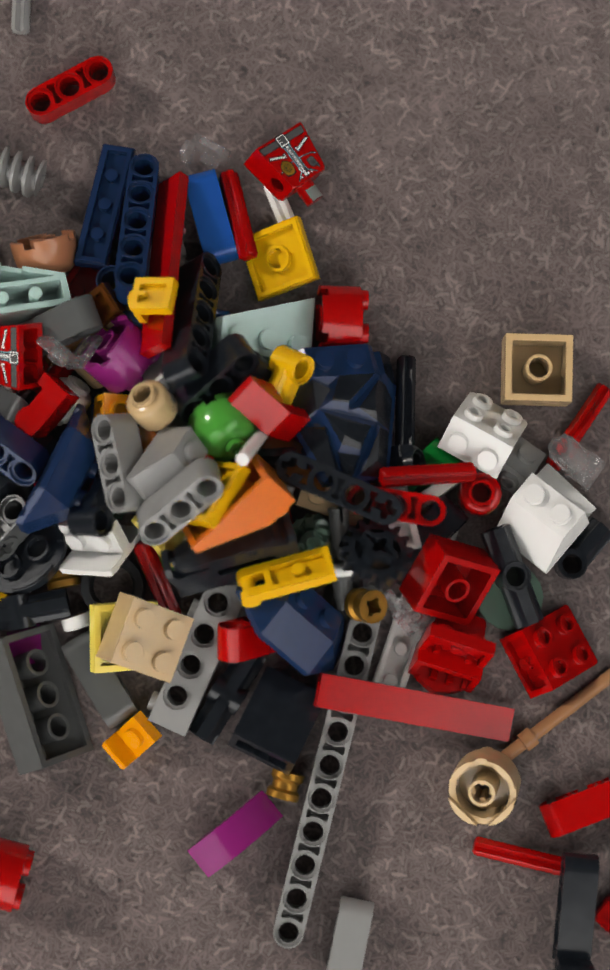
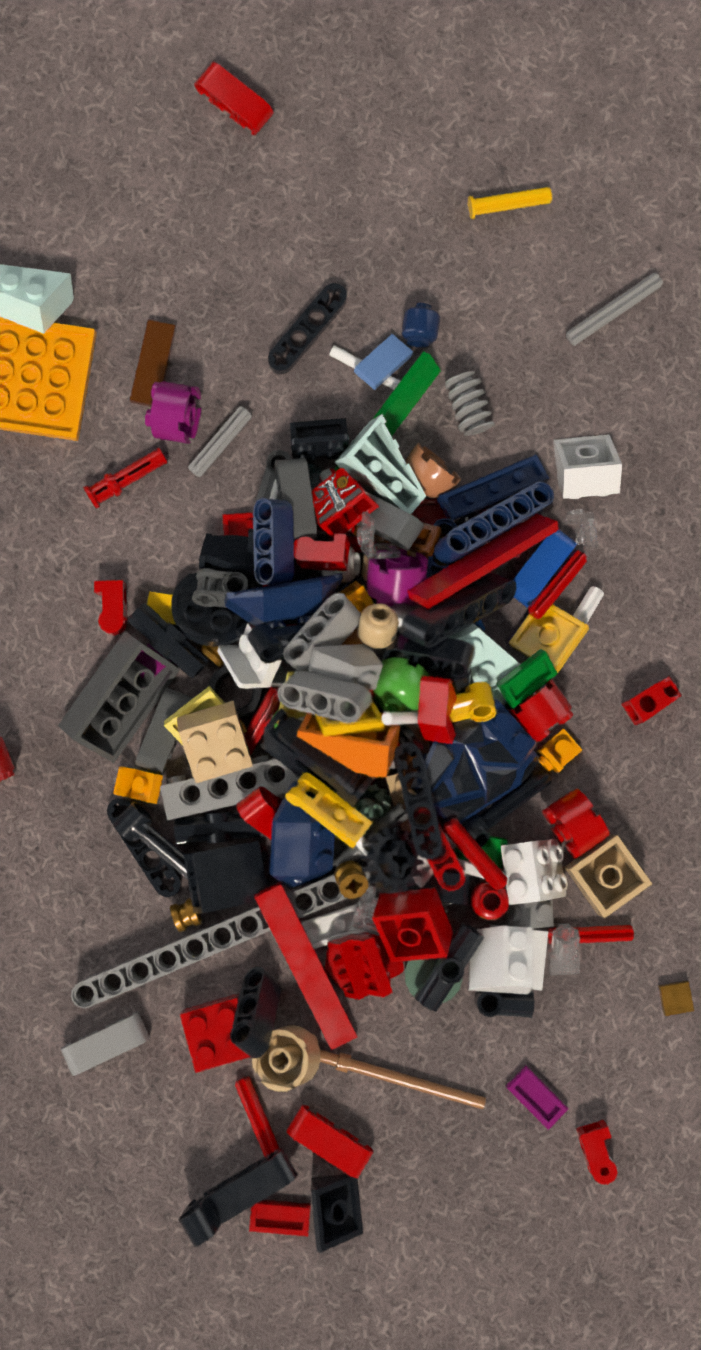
camera: 50 degrees right, 0 degrees up
(76, 621) = (192, 685): white tile -> none
(78, 75) = (571, 403): red beam -> none
(150, 106) = (587, 466): none -> white slope
(152, 297) = (454, 569): yellow bracket -> none
(166, 768) = (136, 824): none -> black axle
(193, 783) = (139, 852): none -> black beam
(235, 833) = (126, 906): magenta brick -> none
(288, 165) = (619, 593): red torso -> none
(303, 307) = (526, 678): none -> green tile
(391, 330) = (558, 751): none -> light orange bracket
(408, 210) = (651, 700): none -> red leg
(414, 835) = (209, 1032): none -> red brick
(422, 783) = (256, 1012): none -> black beam
(468, 362) = (576, 823): none -> red brick
(549, 652) = (415, 1032): red bracket -> none

